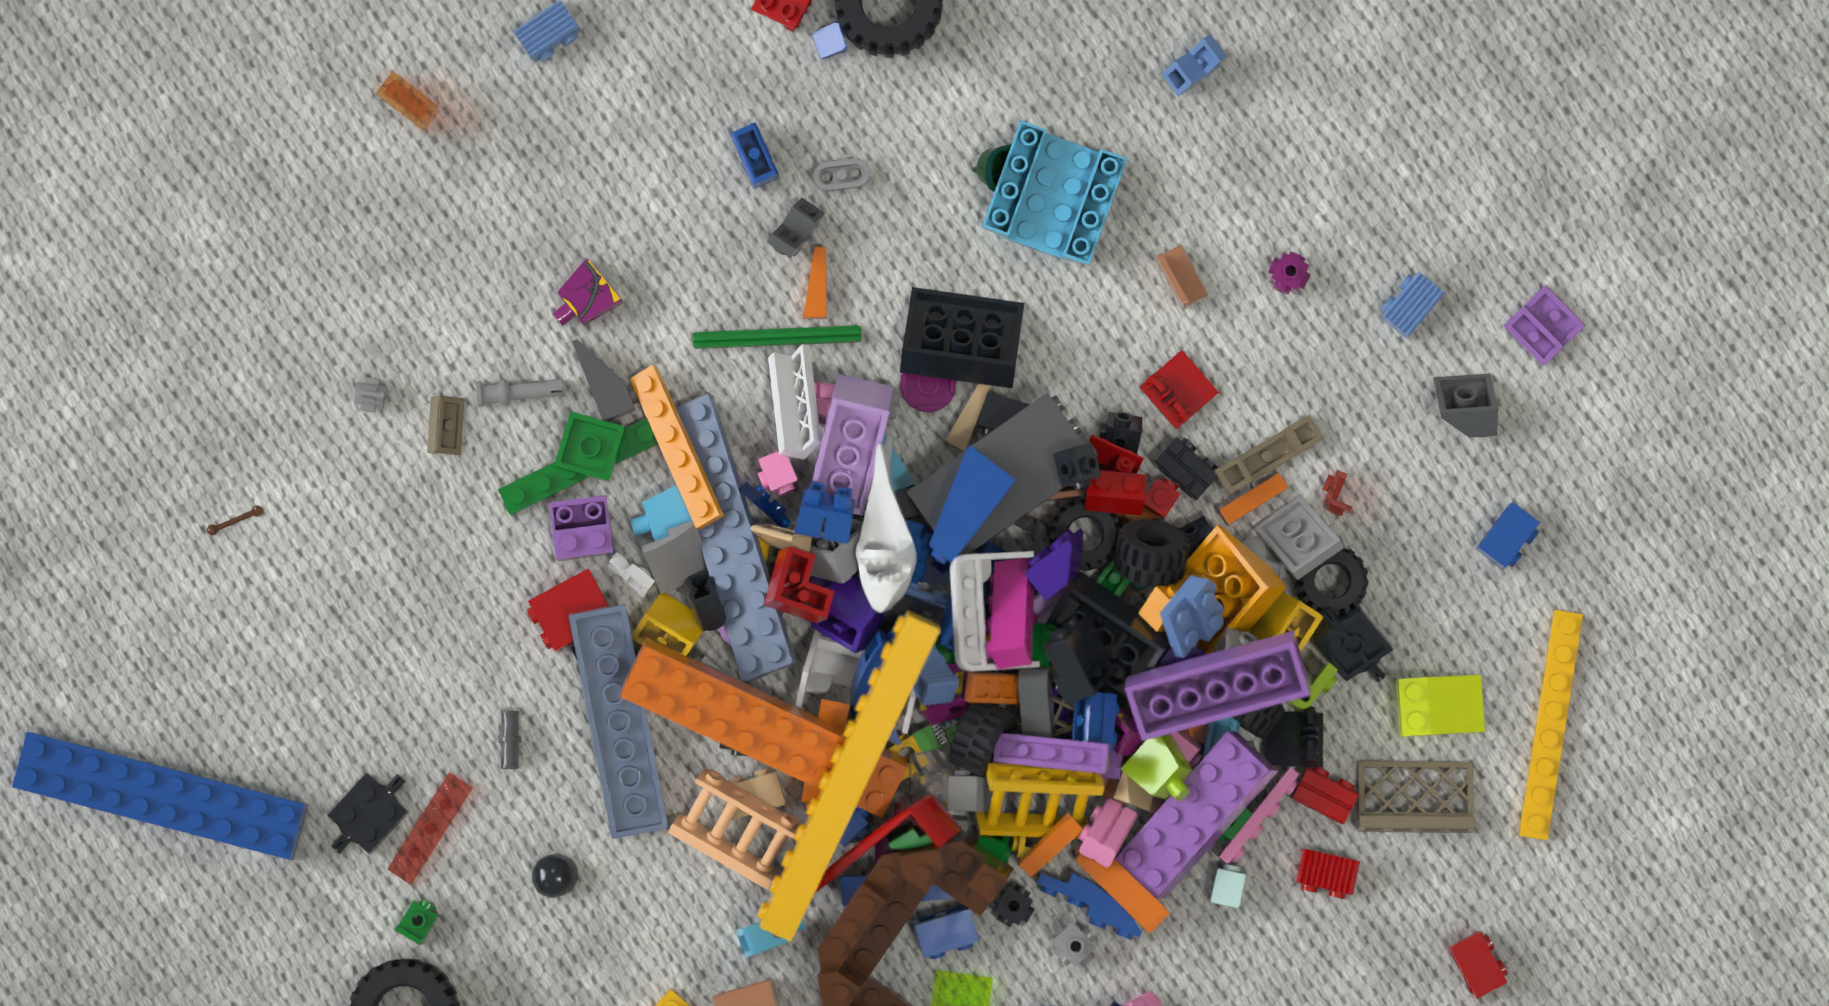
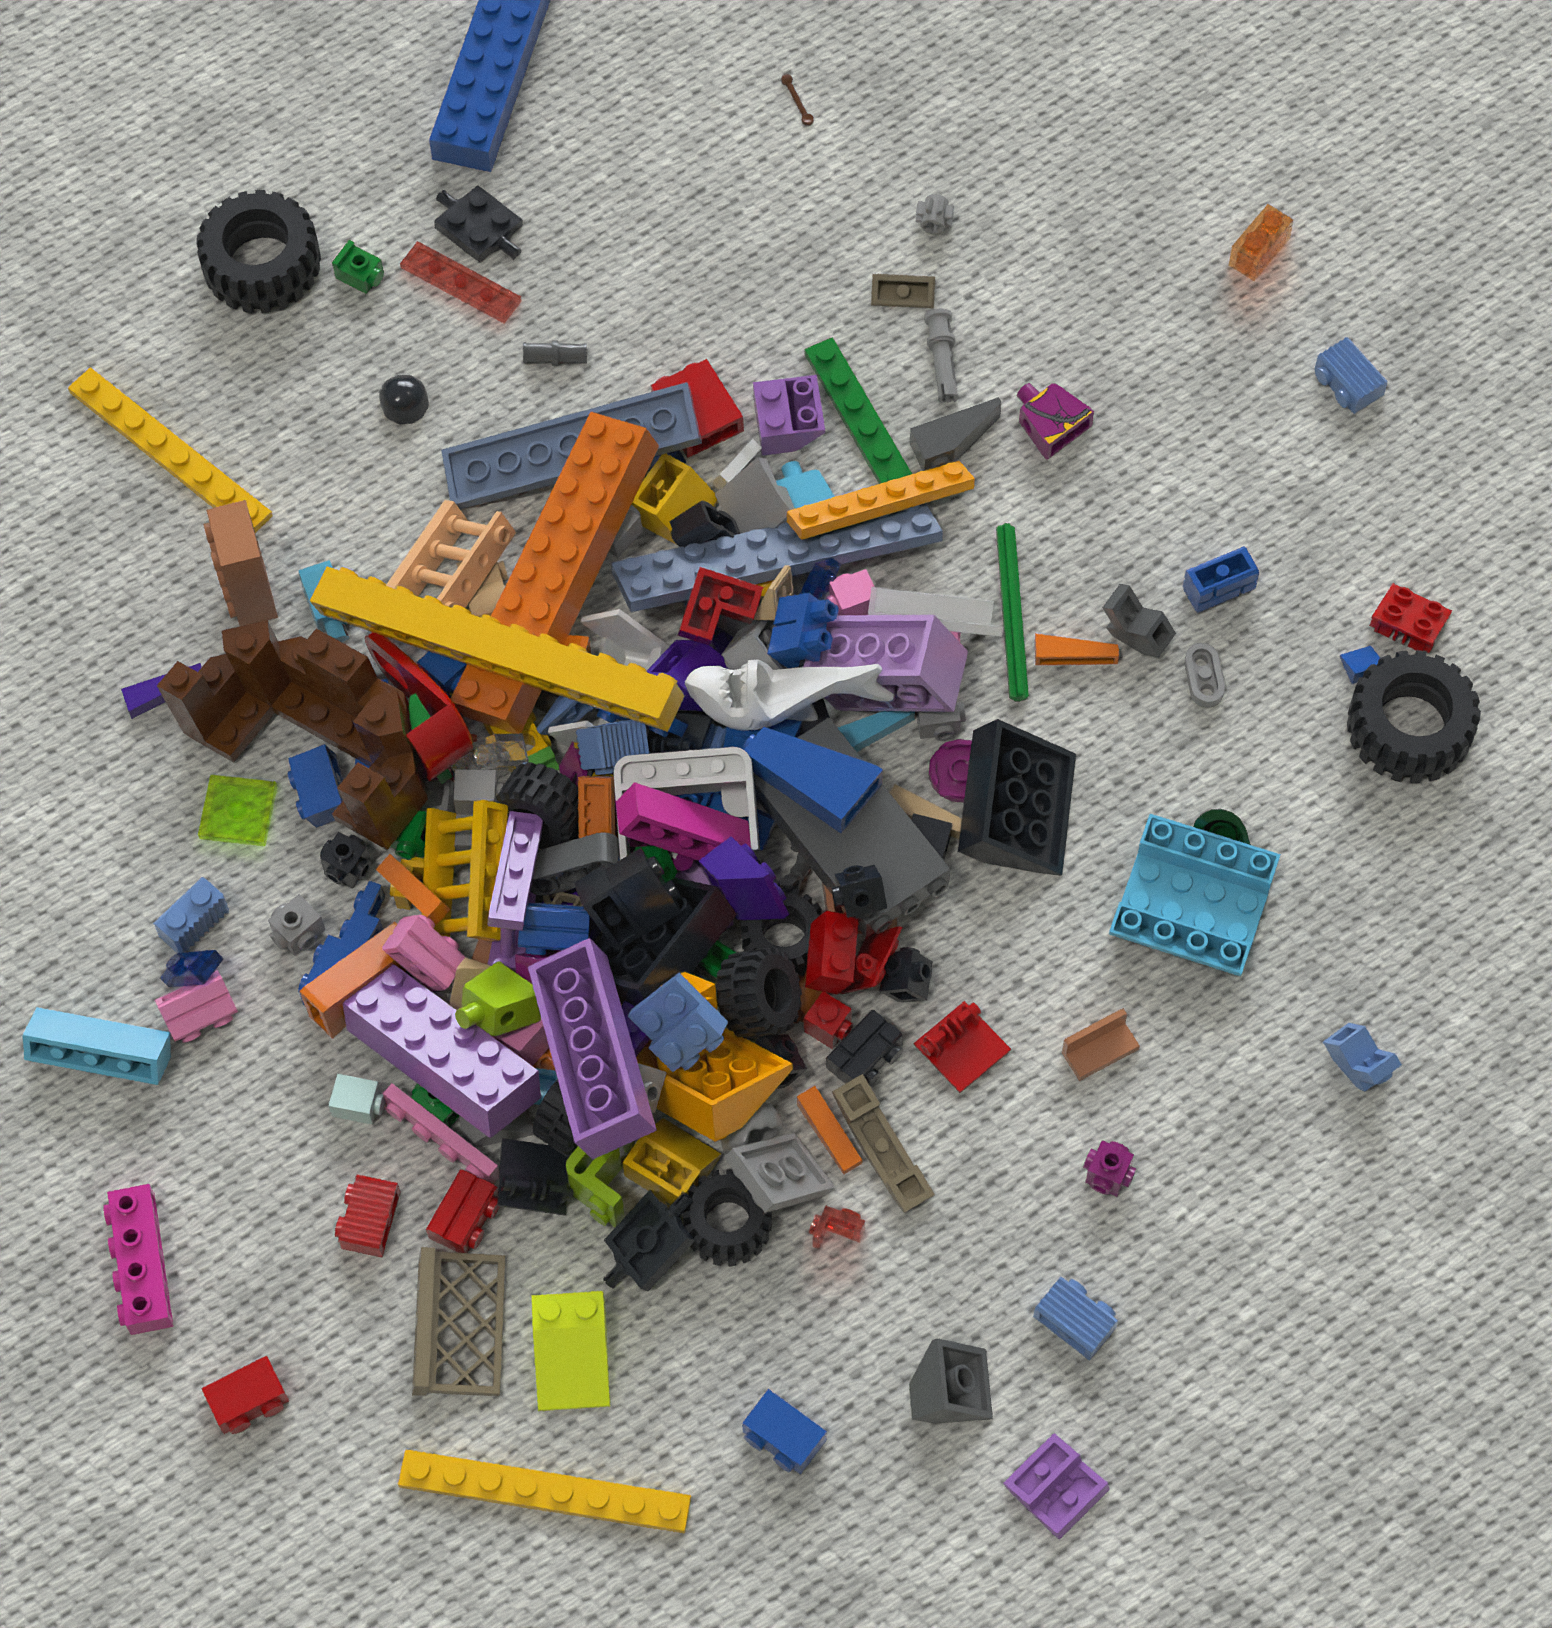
camera: 90 degrees right, 20 degrees down
(589, 446) = (880, 416): green plate -> none

